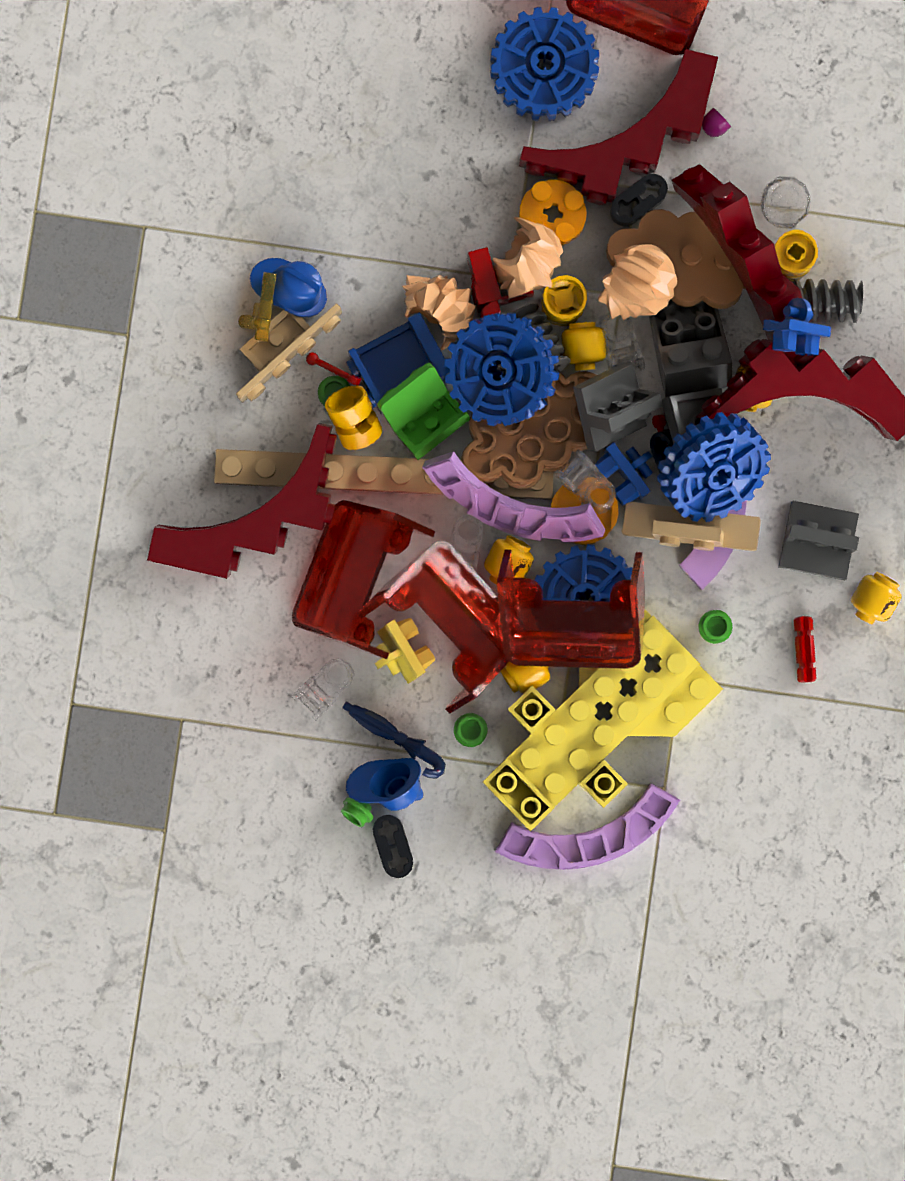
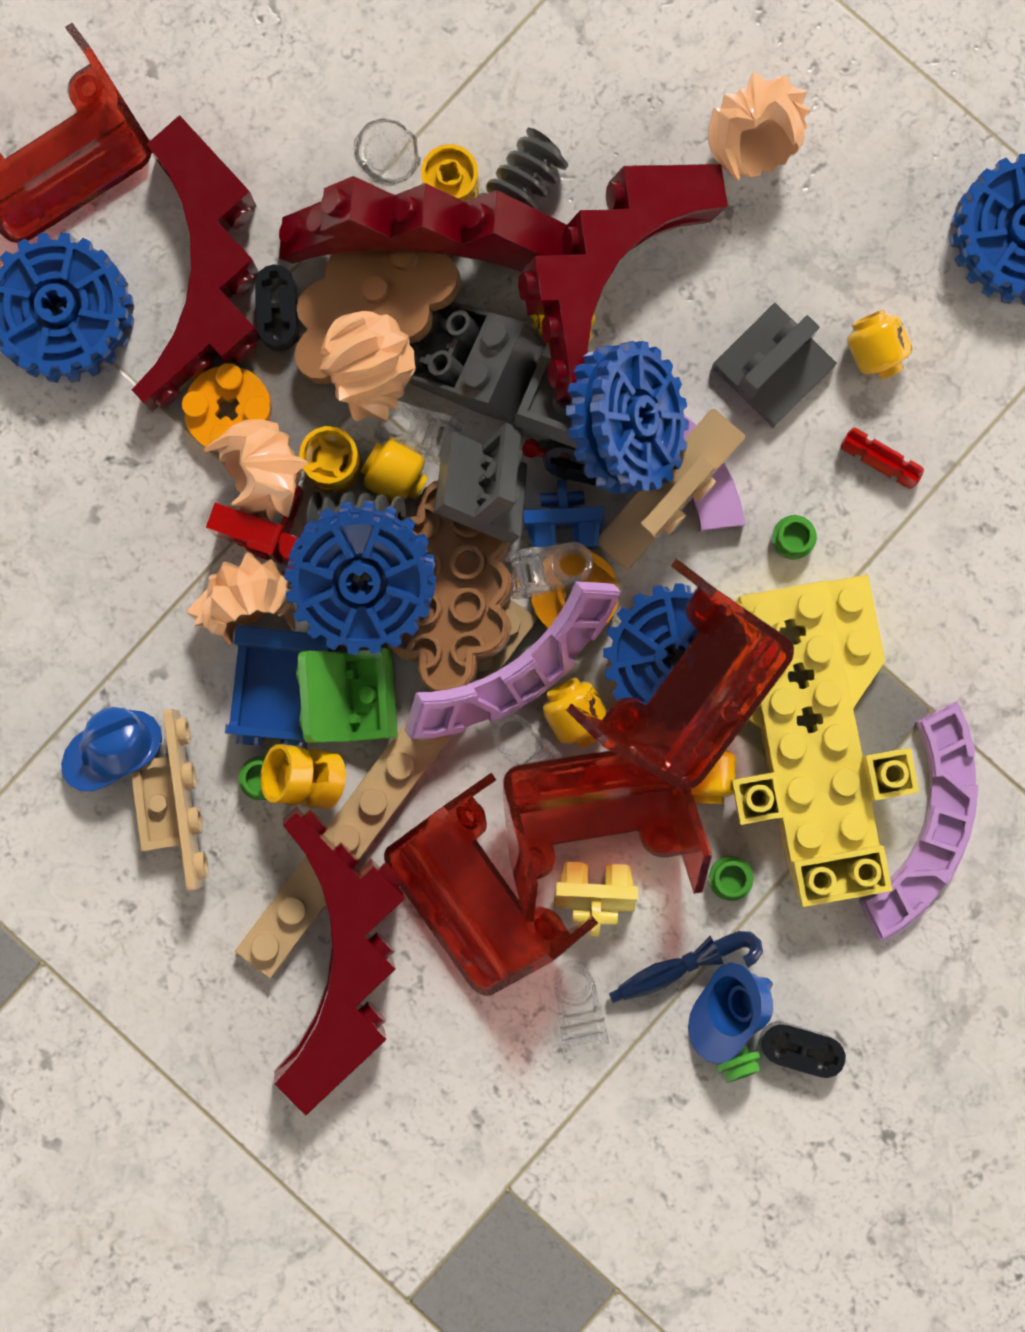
camera: 50 degrees left, 0 degrees up
(262, 311) = (115, 797): clear yellow hose -> none
(313, 359) = (208, 776): red hinge -> none
(715, 124) = (251, 170): magenta hinge -> none
(795, 331) = (542, 224): blue hips -> none

